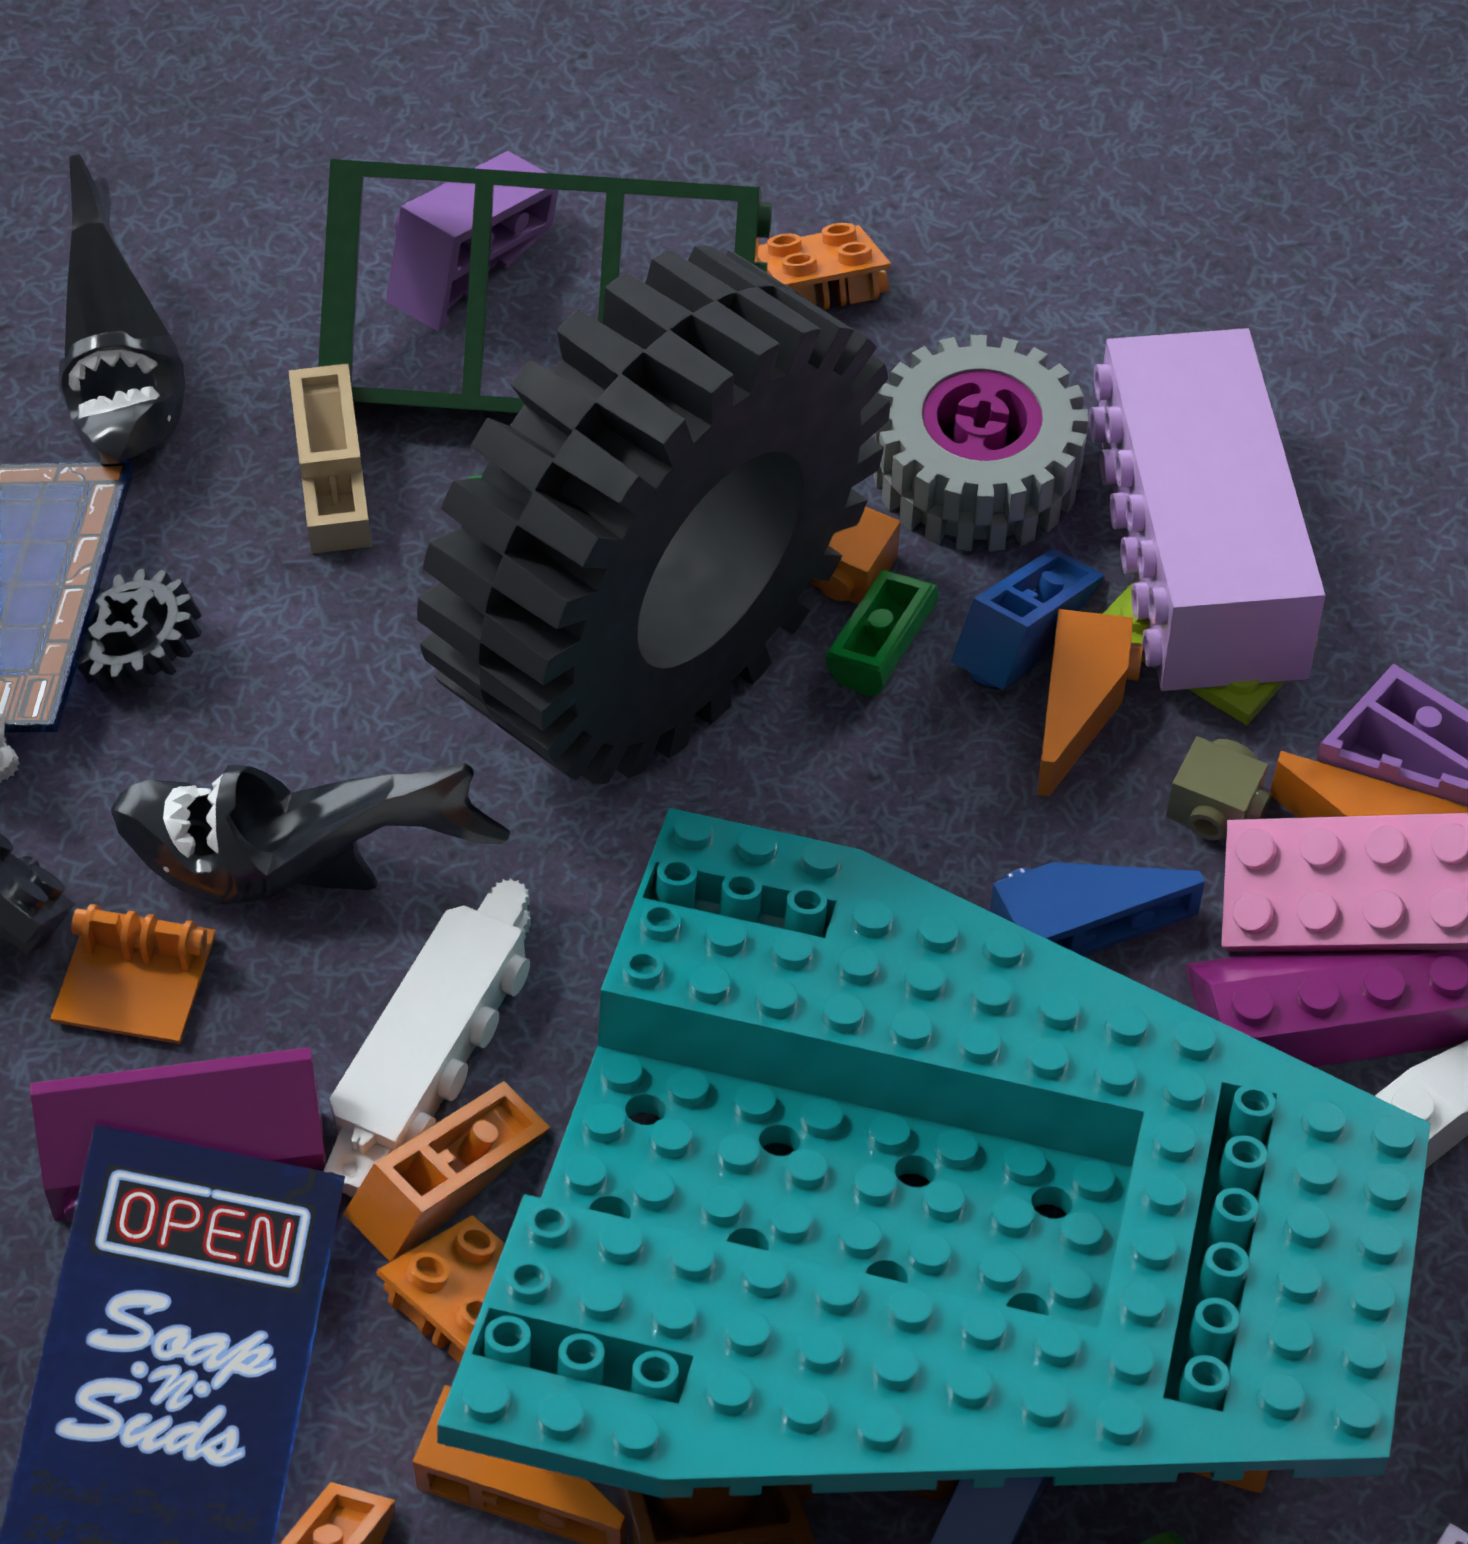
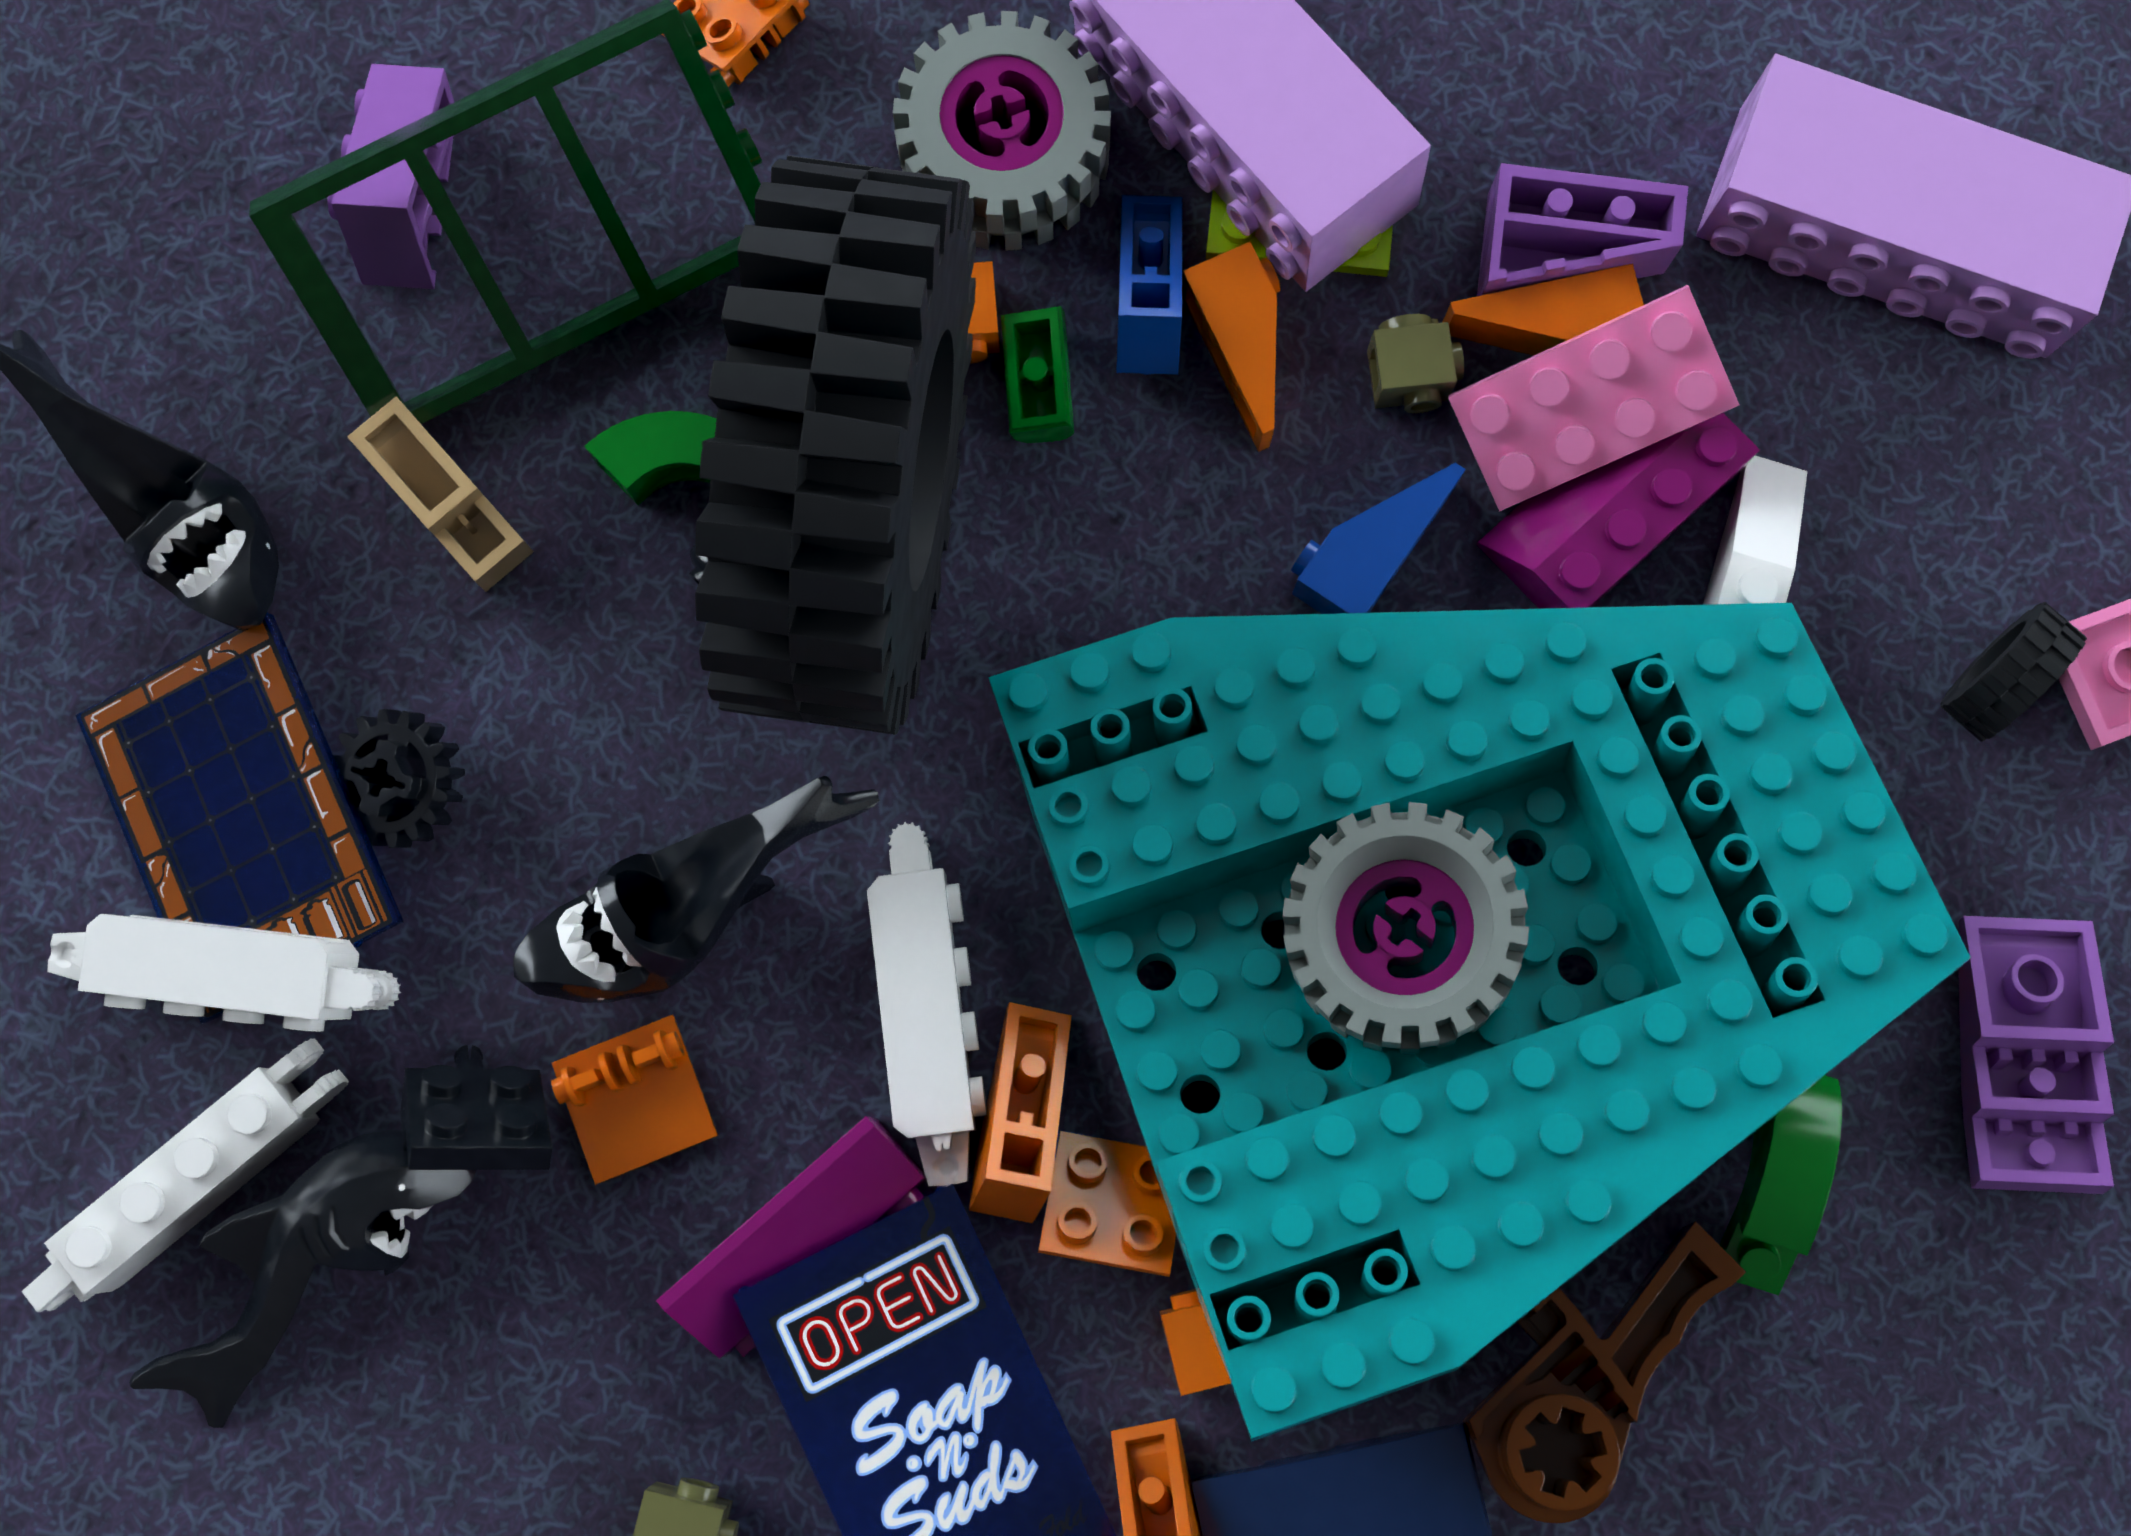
camera: 30 degrees left, 25 degrees up
(934, 1137) = (1453, 875): none -> light grey wheel

